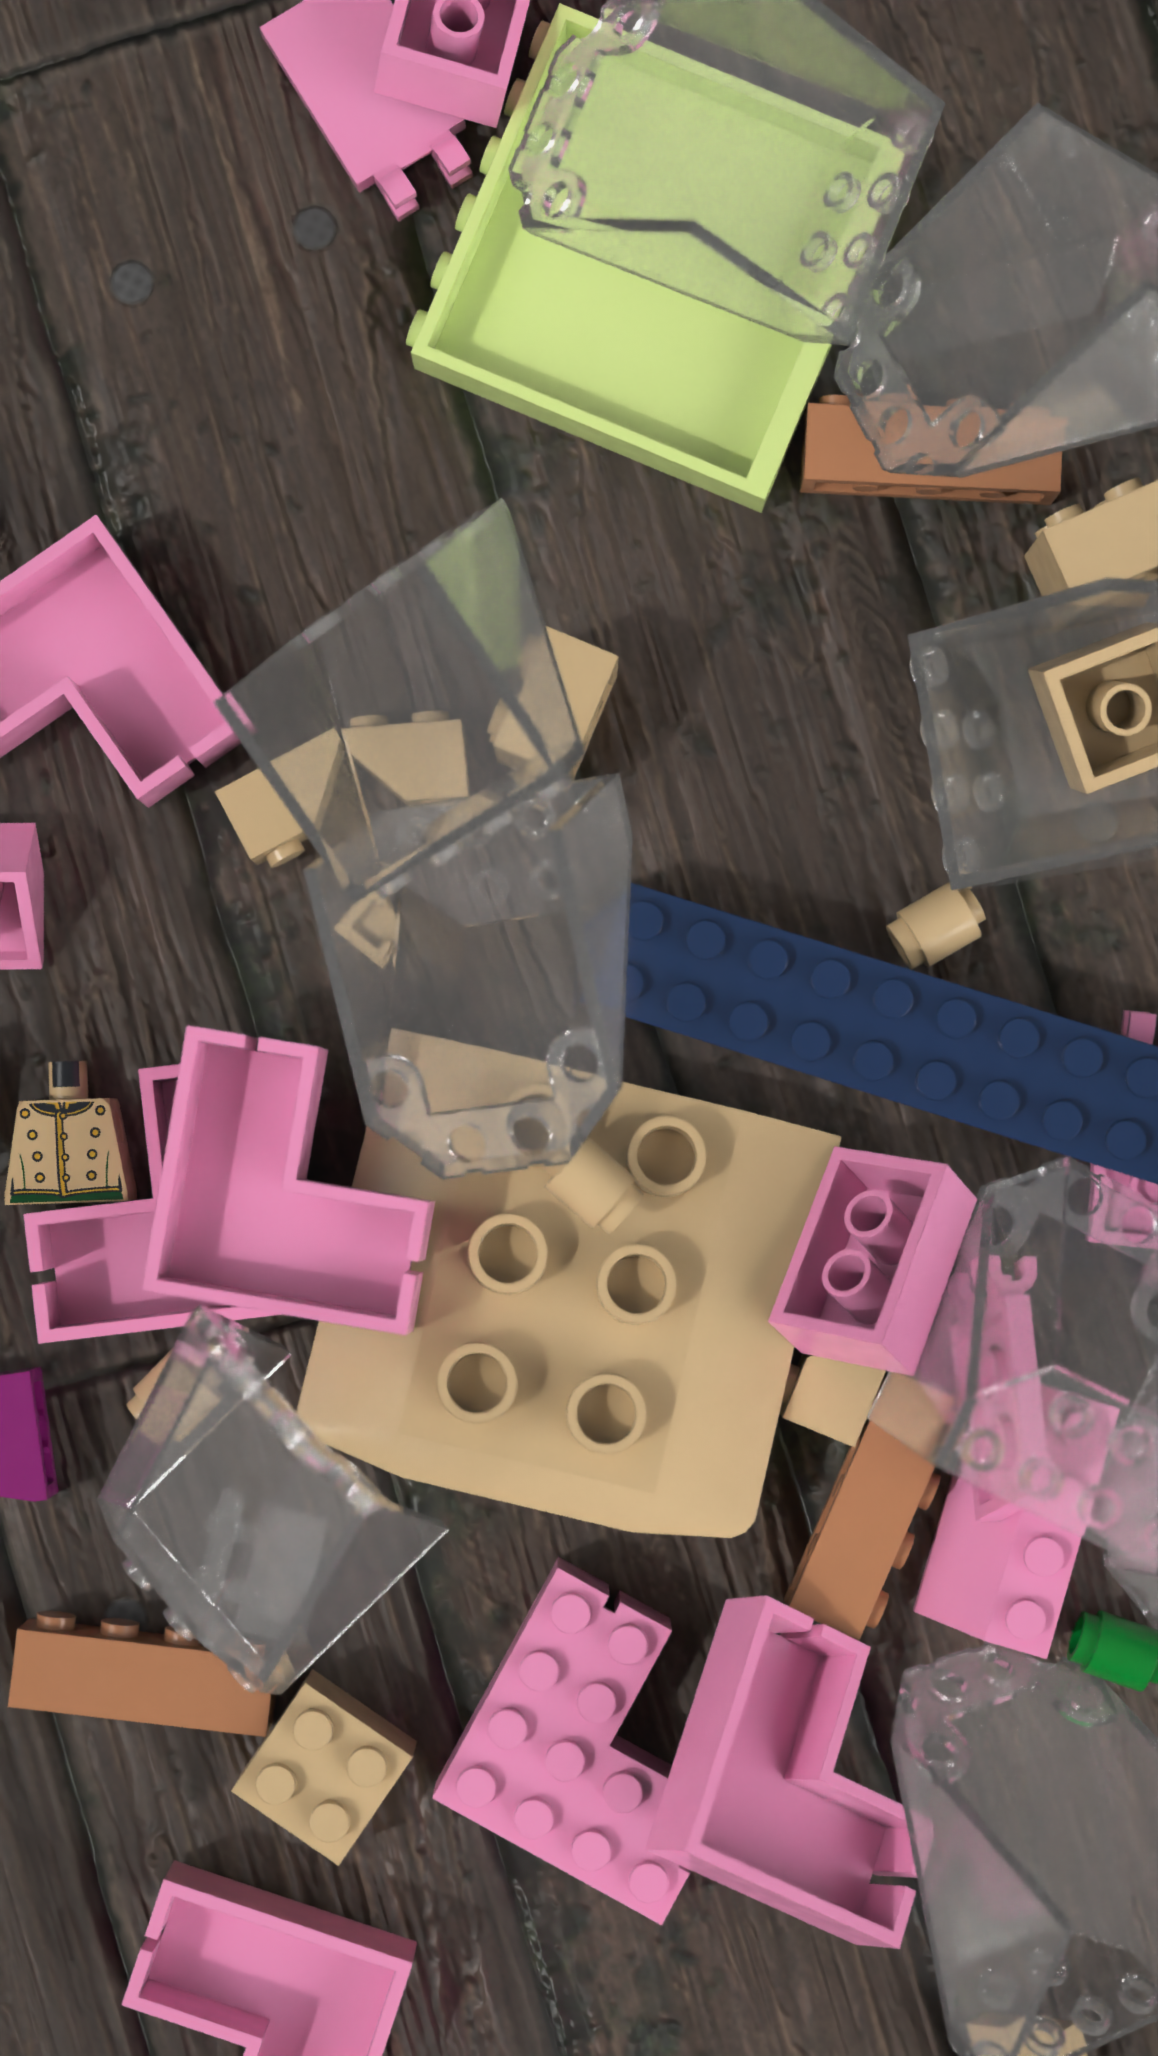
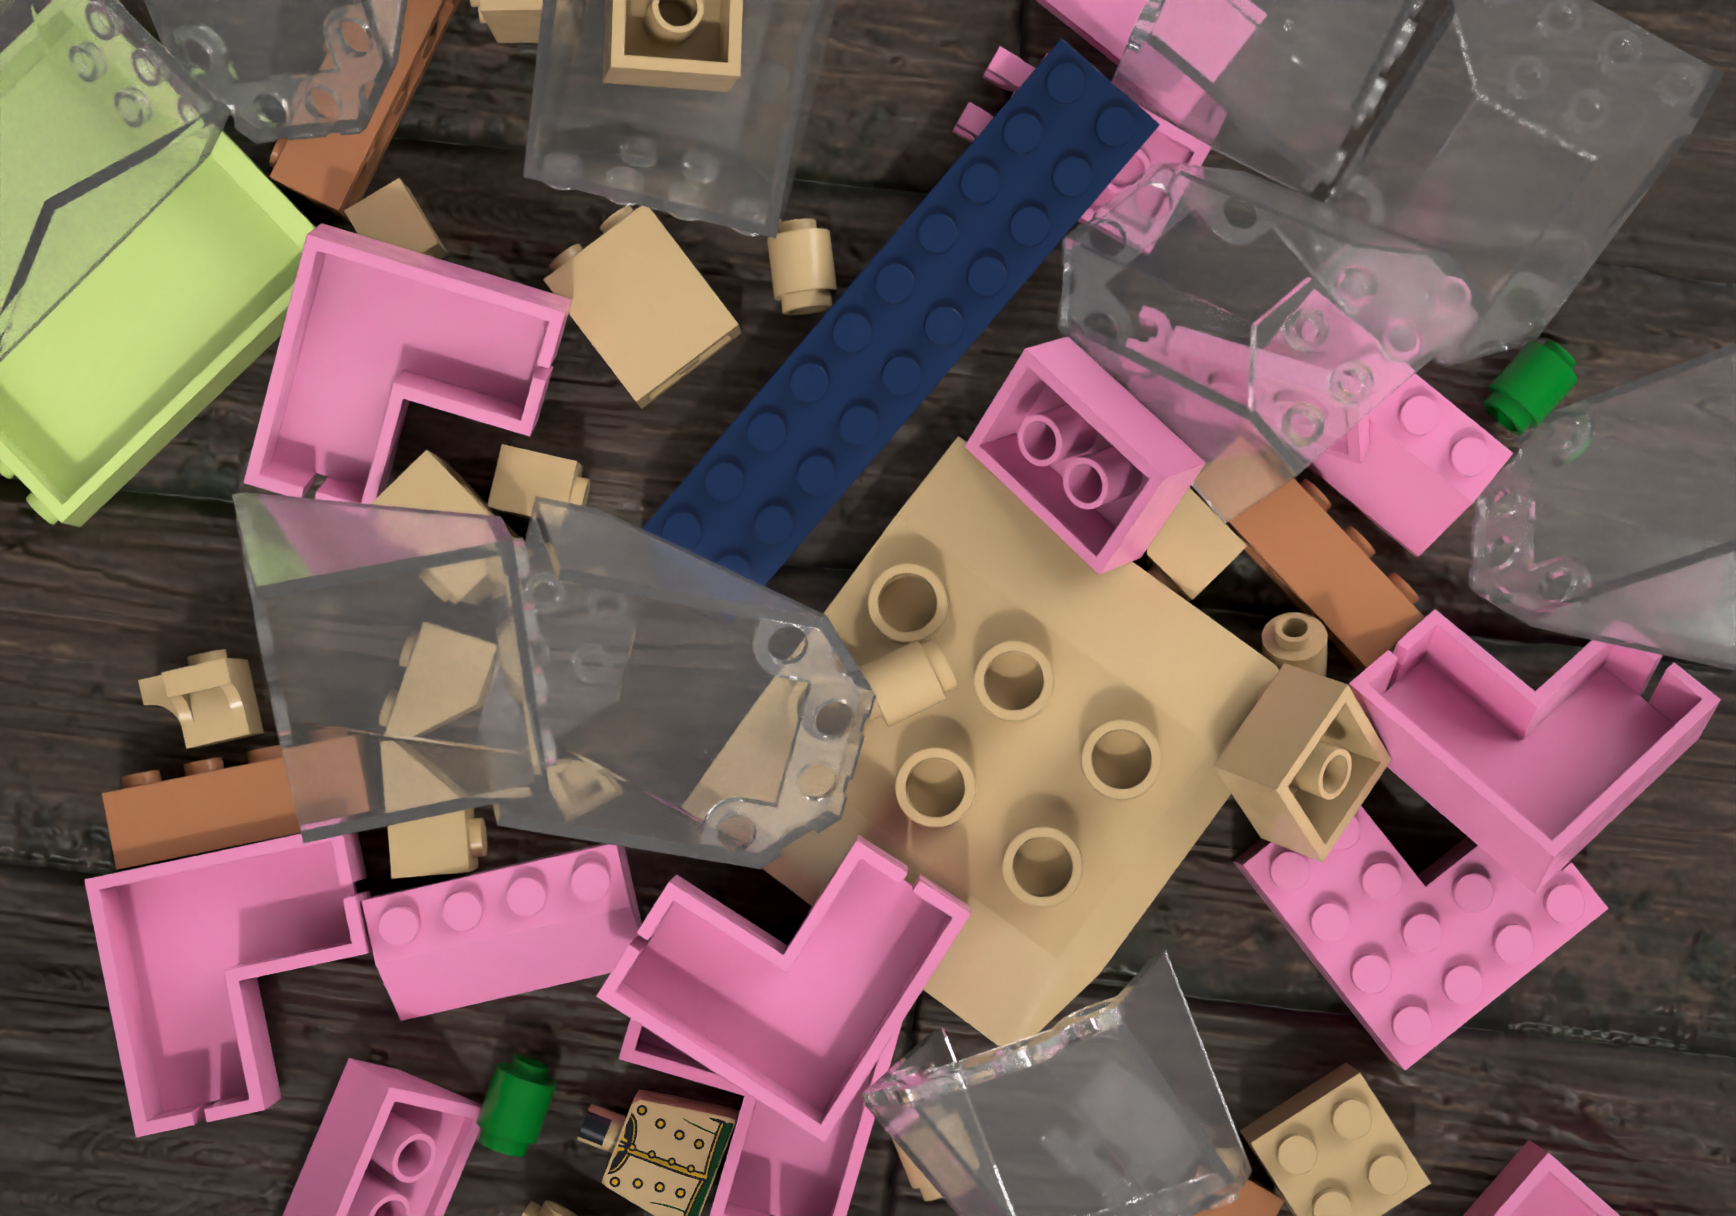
camera: 75 degrees left, 0 degrees up
(55, 993) = (515, 1106): none -> green brick
(204, 592) = (200, 811): none -> nougat brick
(211, 913) = (503, 930): none -> bright pink slope
(308, 553) = (209, 698): none -> tan brick
(636, 756) = (529, 474): none -> tan brick
(676, 1583) = (1303, 761): none -> tan brick
(715, 572) = (386, 330): none -> bright pink piece
(777, 1537) = (1297, 641): none -> tan brick
(806, 541) = (396, 219): none -> tan brick
(839, 792) = (642, 303): none -> tan panel

